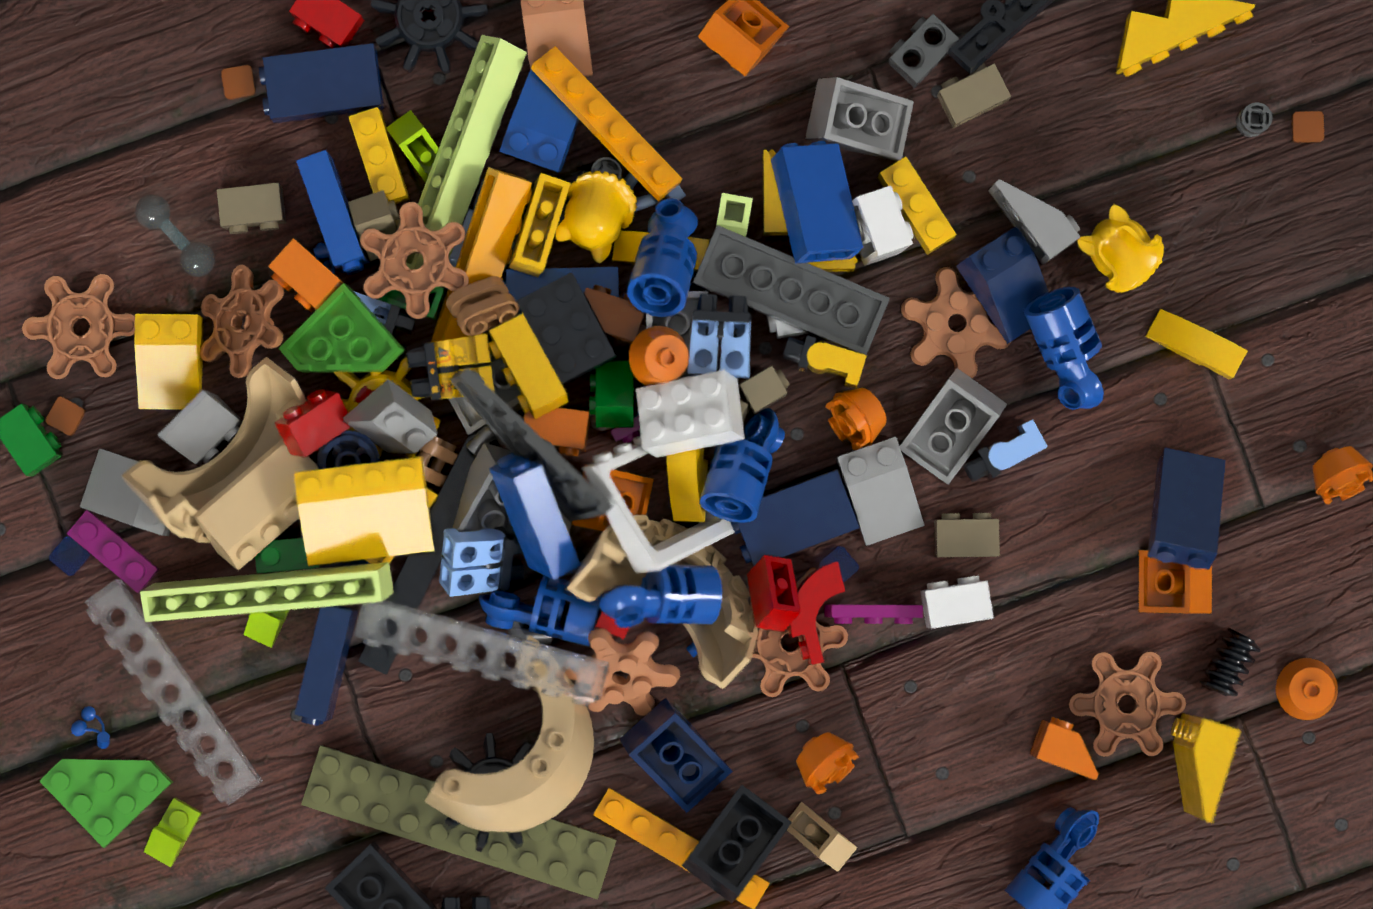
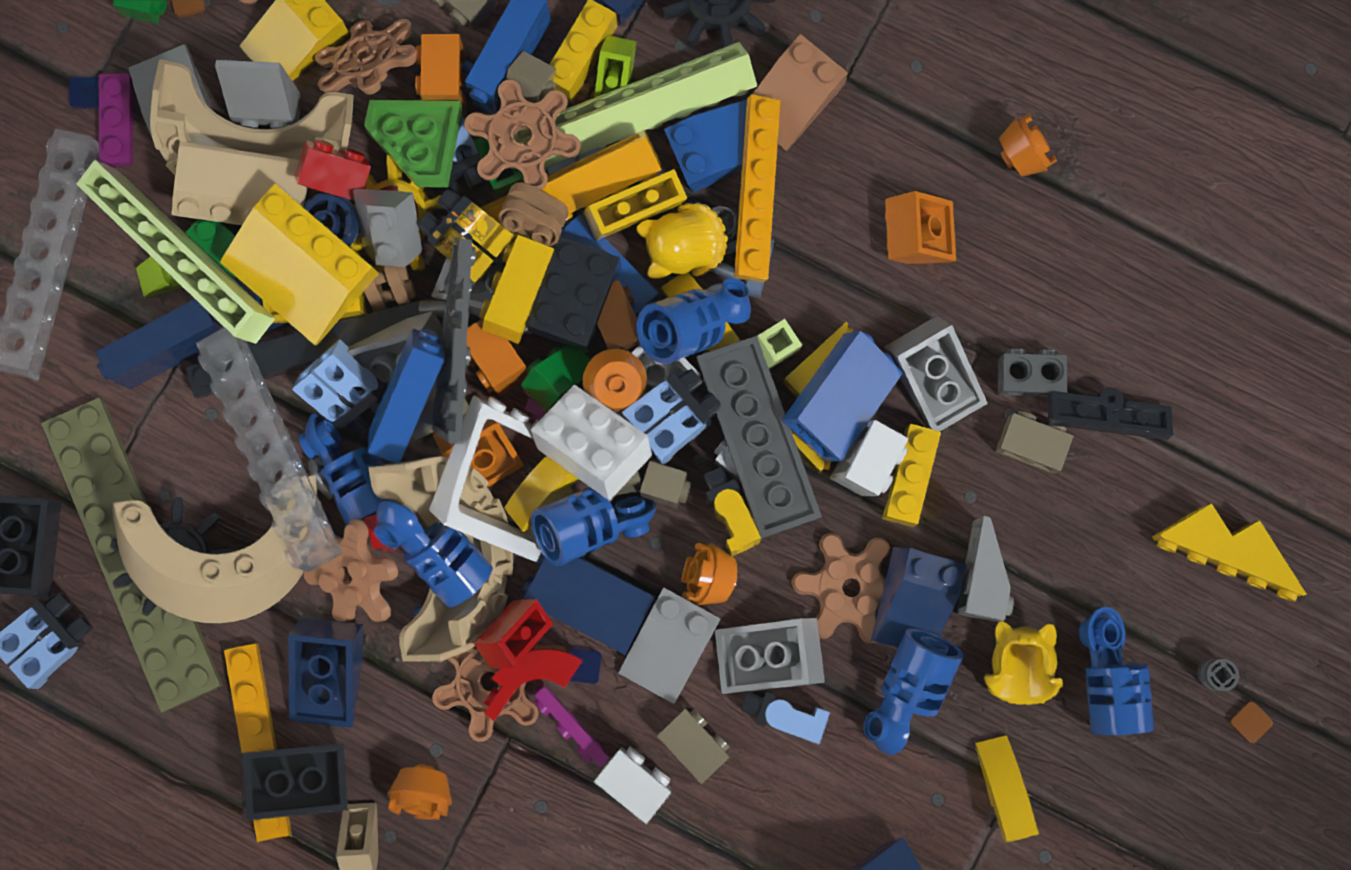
camera: 50 degrees right, 5 degrees down
(1199, 202) = (1115, 690): none -> blue cylinder

